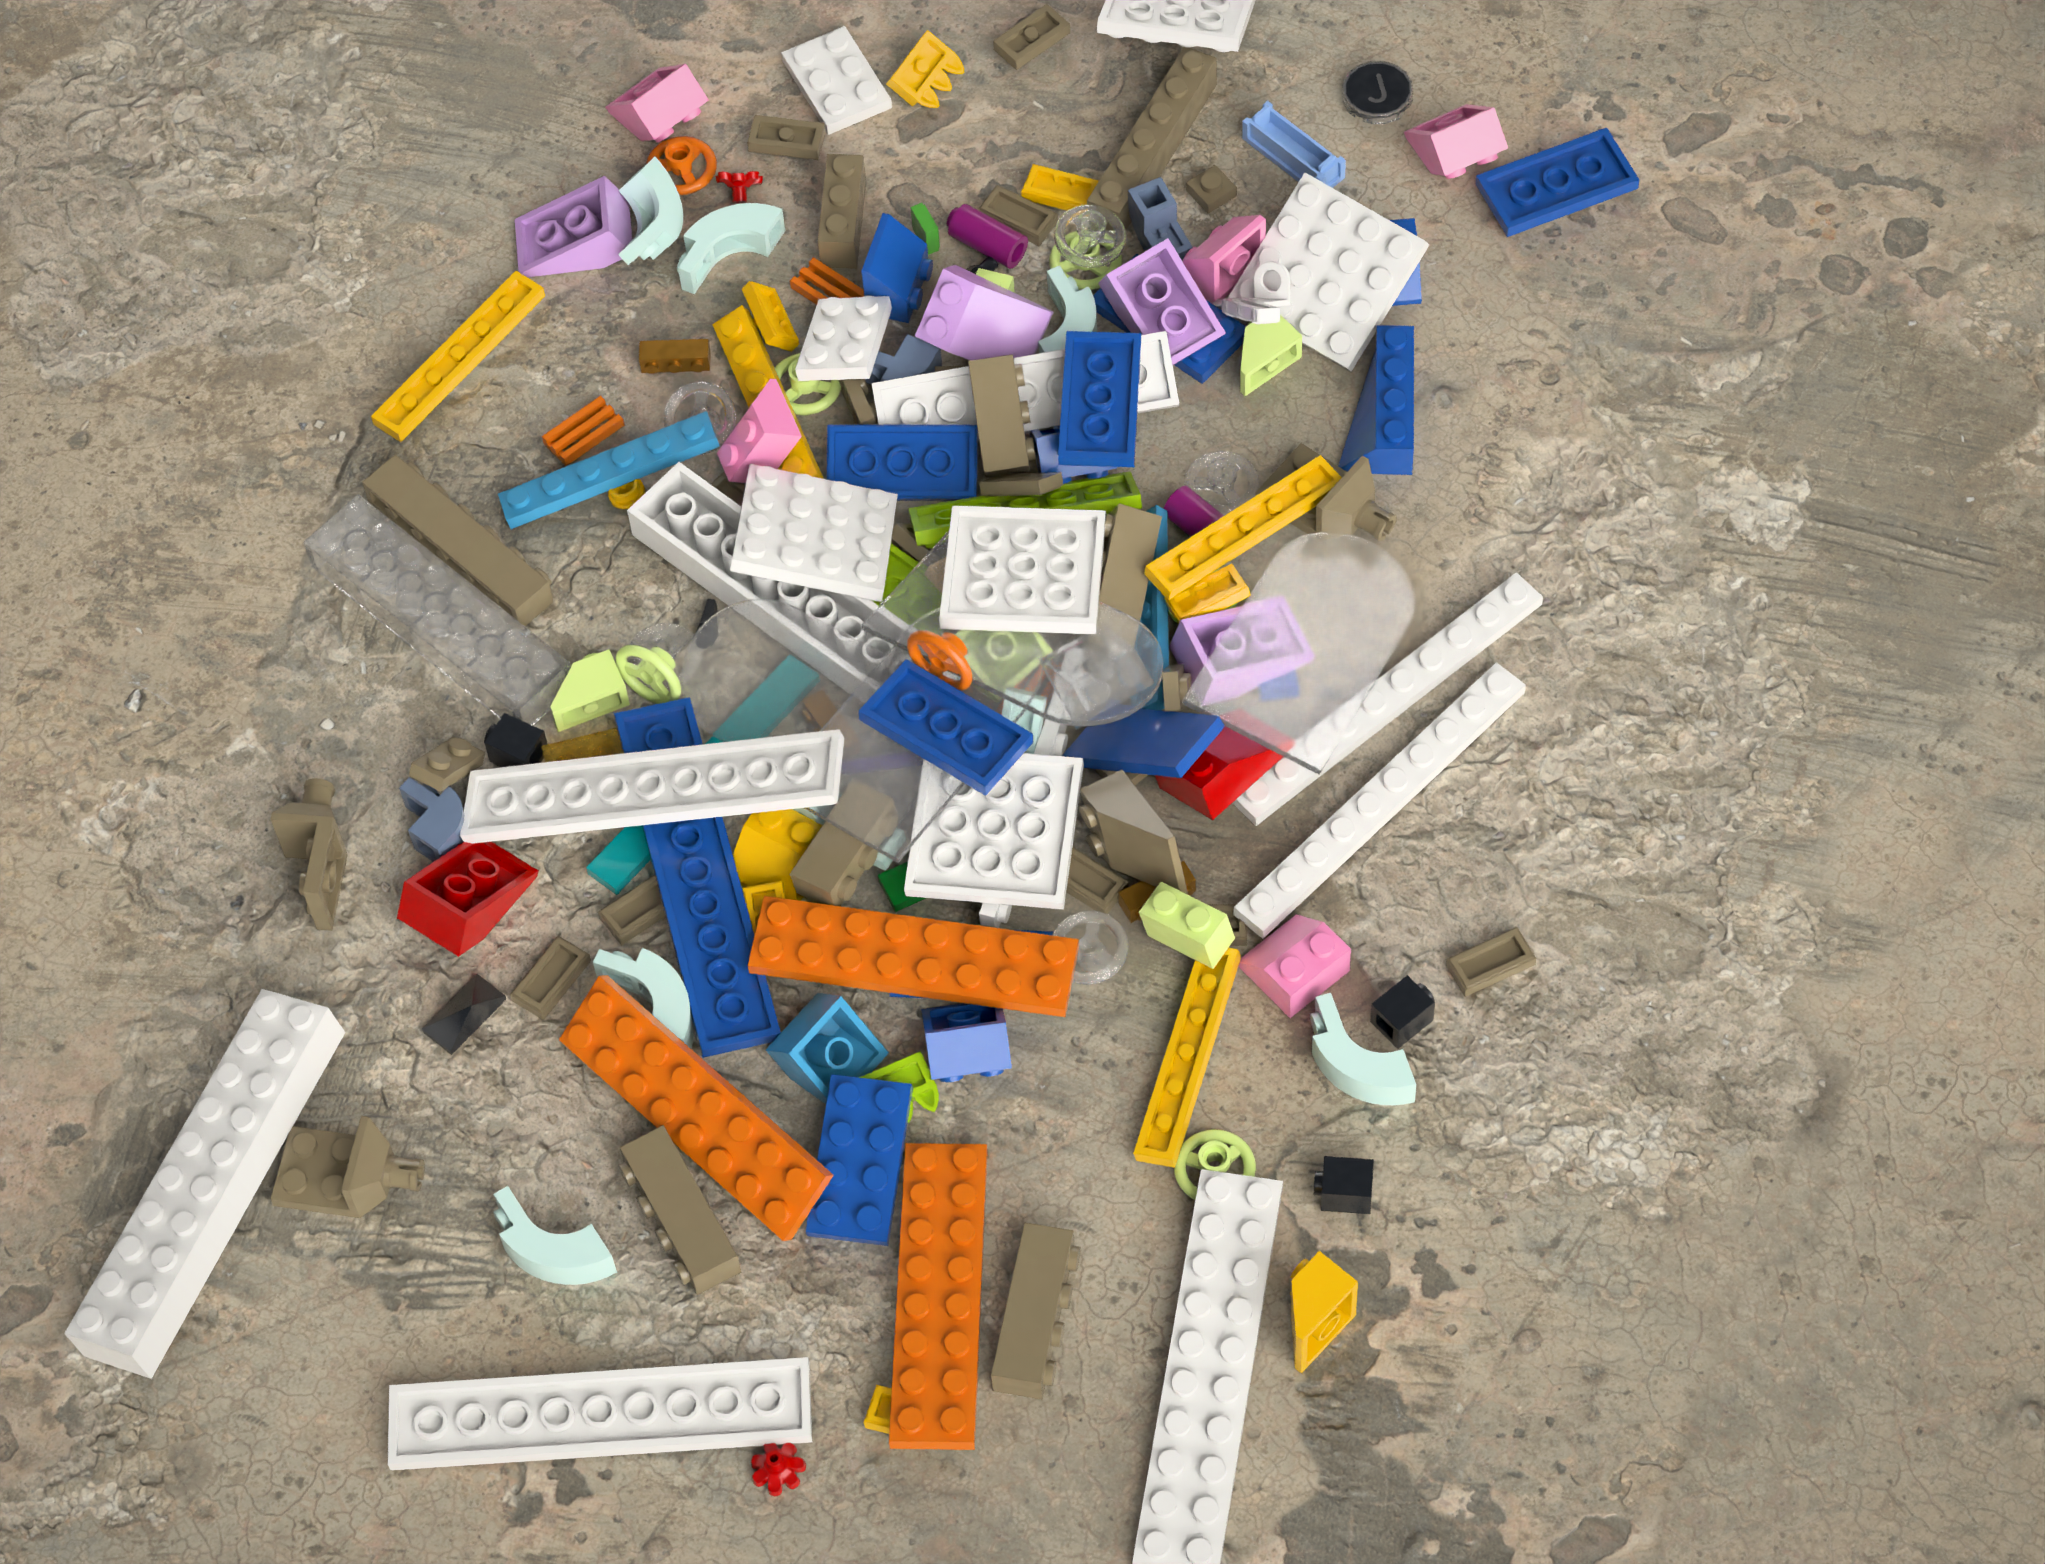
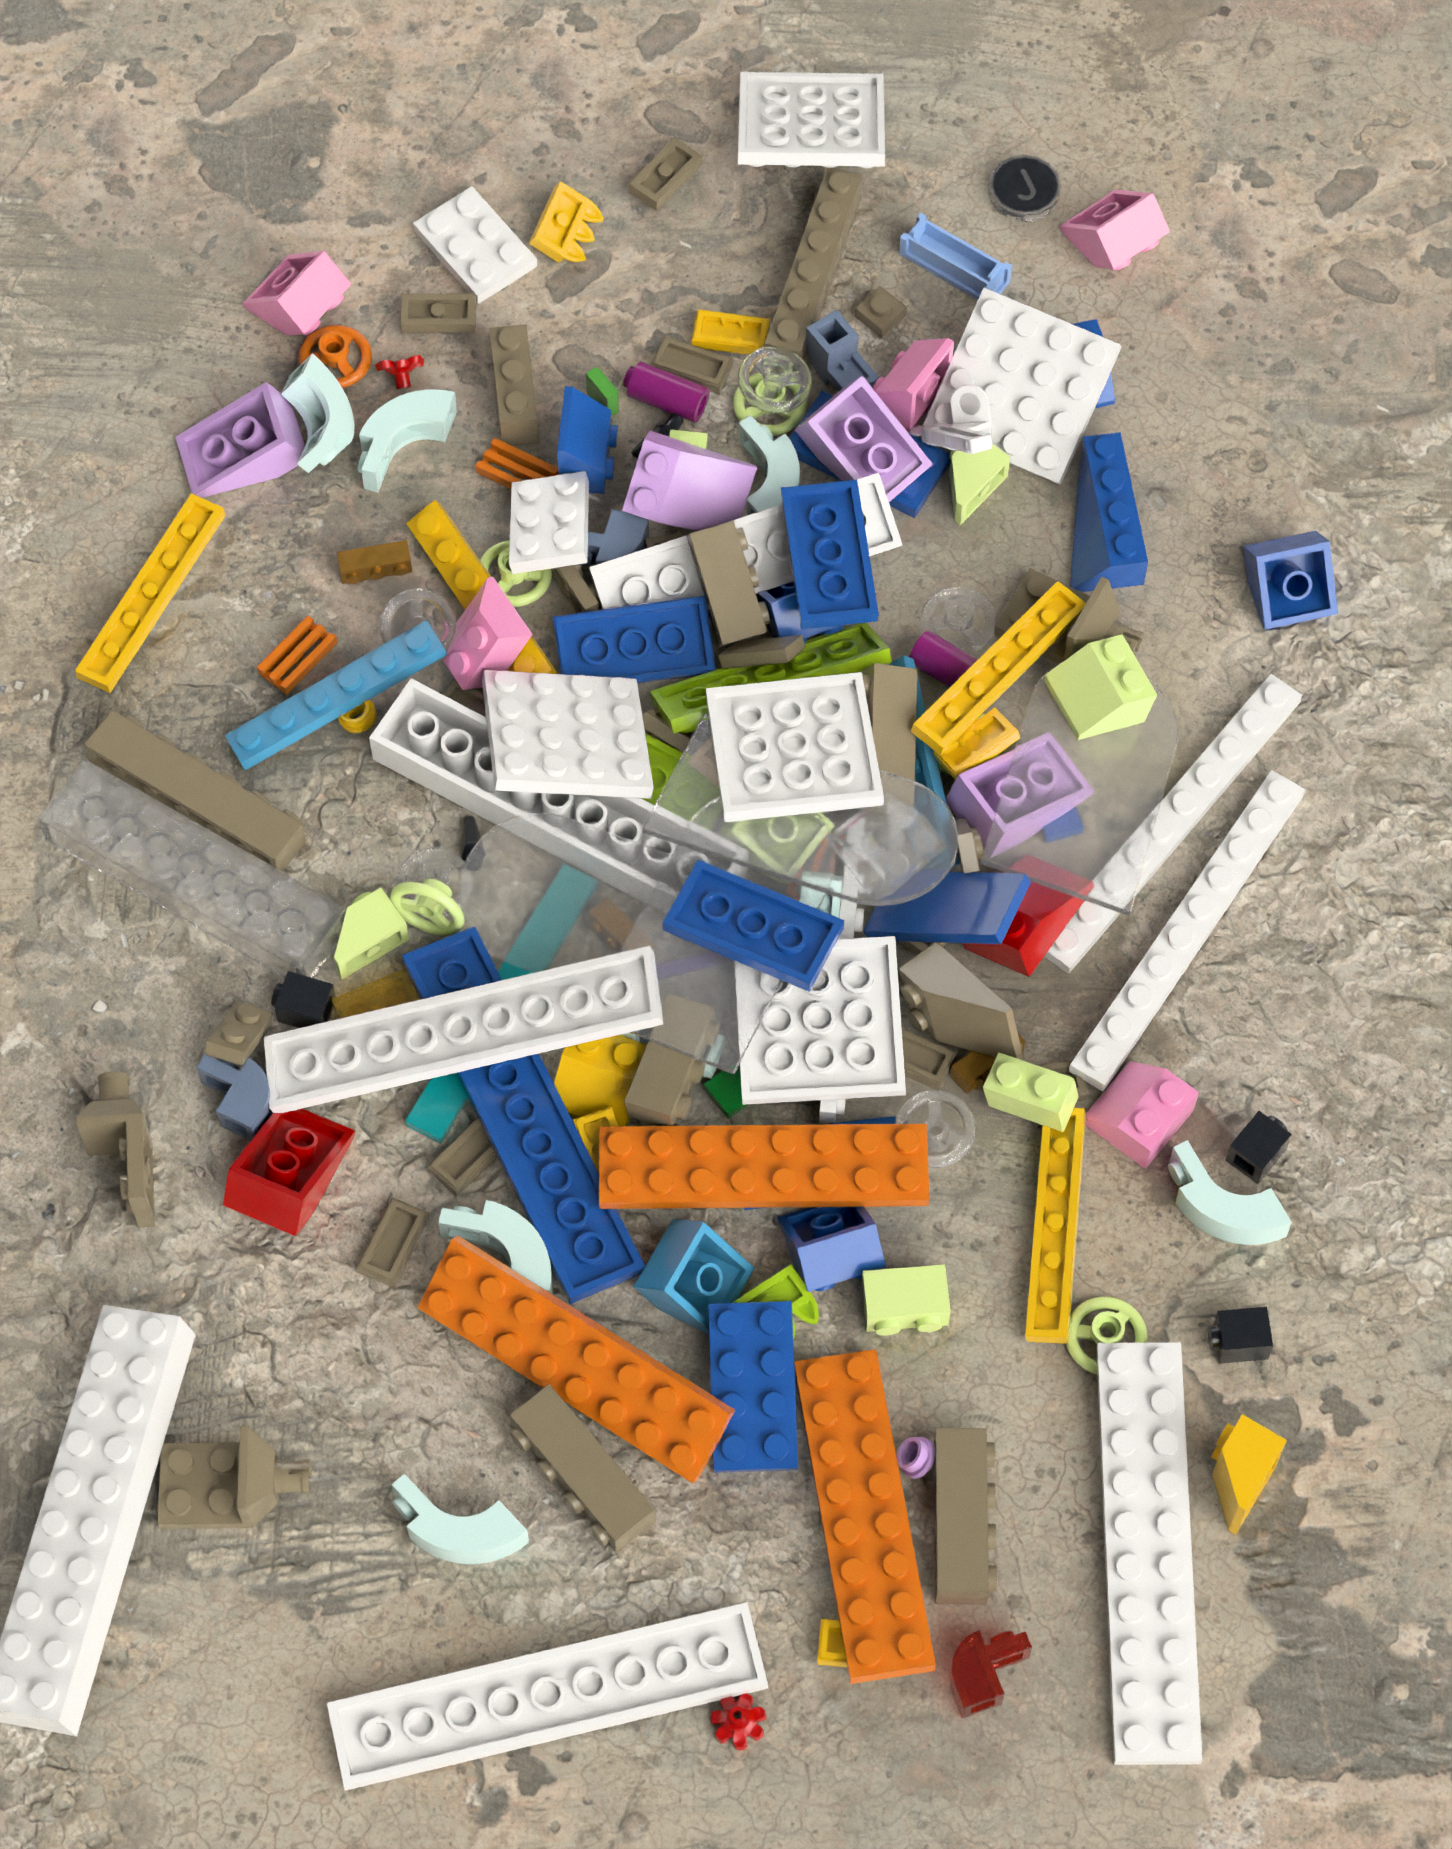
camera: 15 degrees left, 5 degrees up
(464, 1014) = (312, 1294): black slope -> none
(770, 316) = (464, 507): yellow plate -> none
(944, 654) = (739, 850): orange piece -> none
(1001, 1248) = (916, 1456): none -> lavender plate
(1015, 1450) = (974, 1666): none -> clear red brick
(1025, 1101) = (905, 1299): none -> yellowish green brick
(1341, 561) = (1101, 688): none -> yellowish green slope
(1491, 961) = (1331, 1080): dark tan tile -> none
(1556, 487) = (1291, 579): none -> blue slope
(1557, 182) = (1223, 260): blue plate -> none

